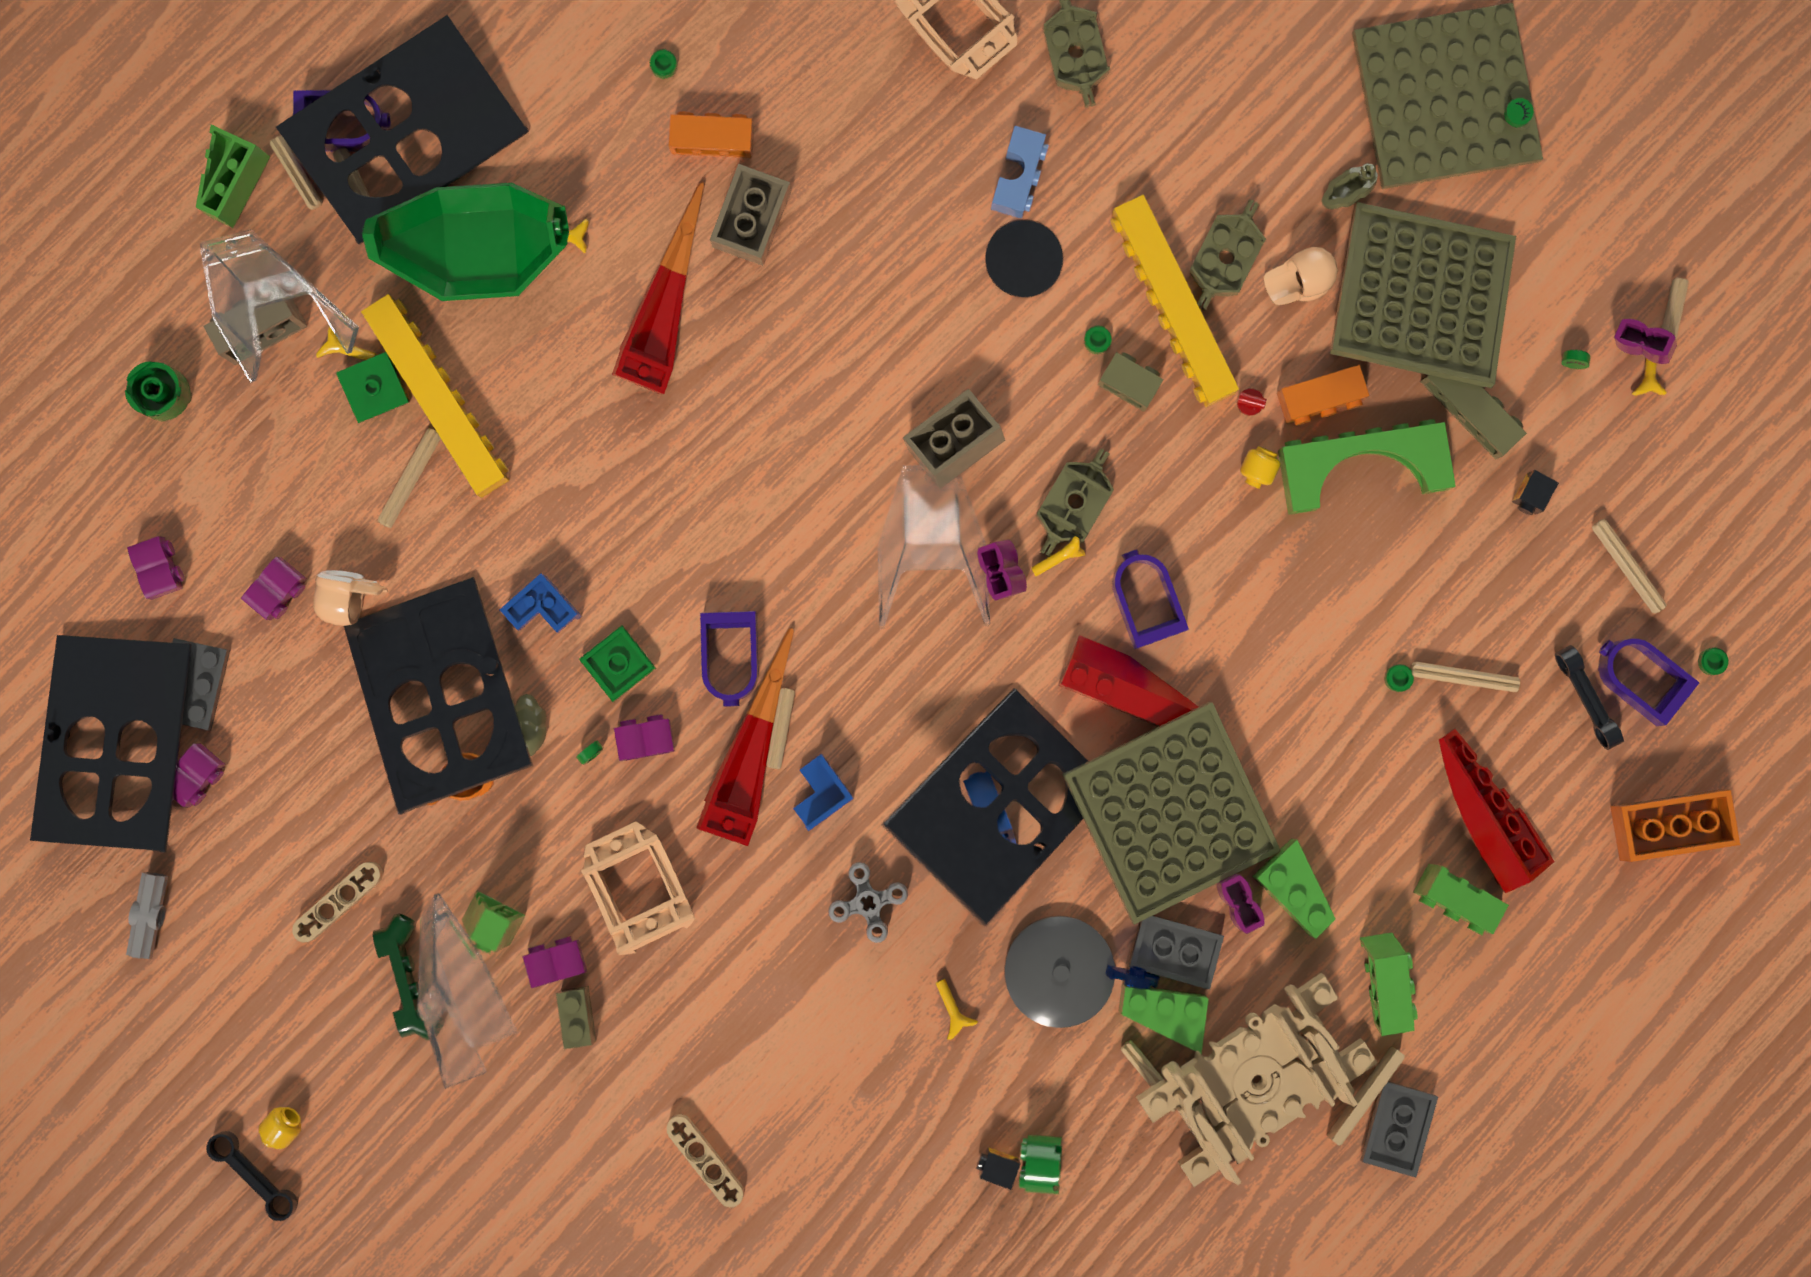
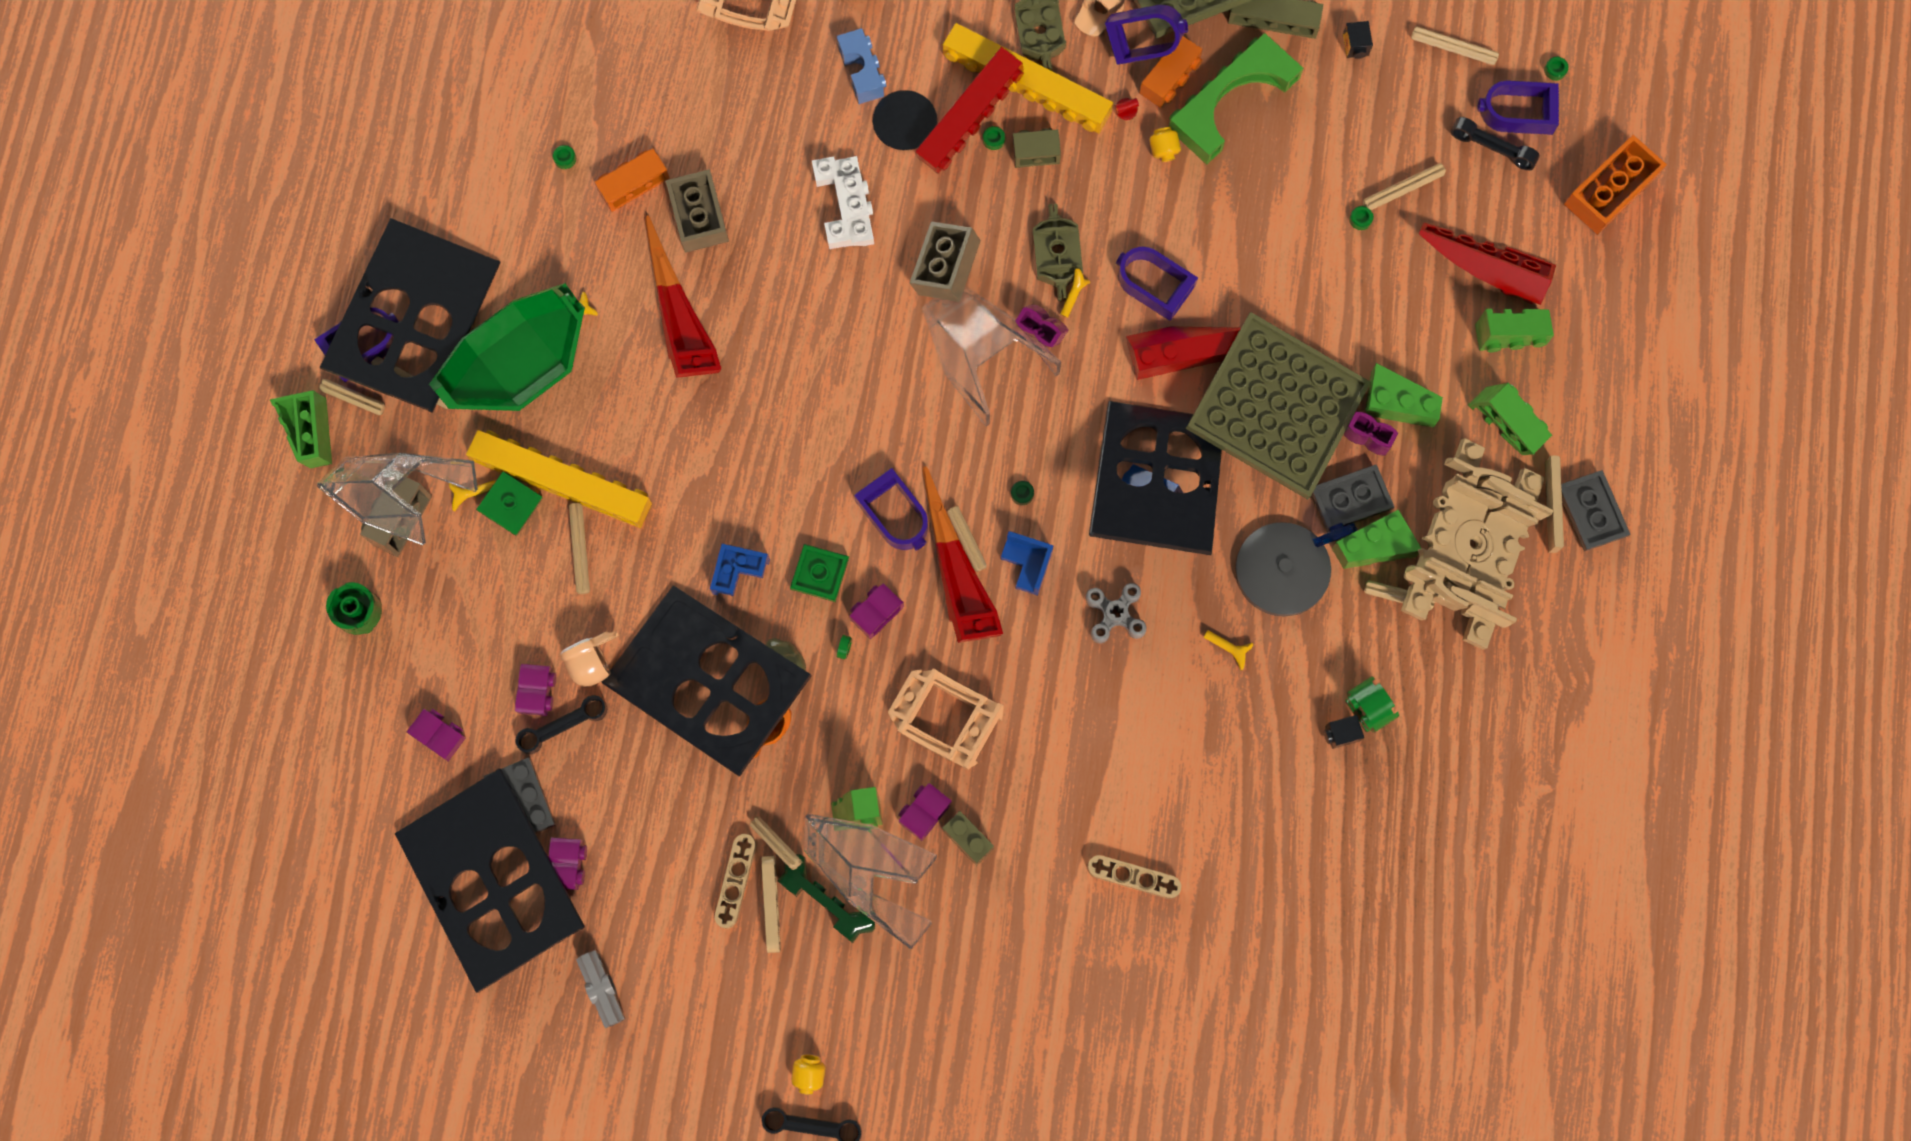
camera: 30 degrees left, 10 degrees down
(277, 639) = (561, 724): none -> black piece
(354, 948) = (771, 907): none -> tan beam
(395, 896) = (775, 843): none -> tan axle
(866, 720) = (1022, 492): none -> dark green tile
(910, 308) = (850, 190): none -> white bracket
(1090, 298) = (969, 110): none -> red brick
(1350, 335) = (1119, 42): none -> dark purple window

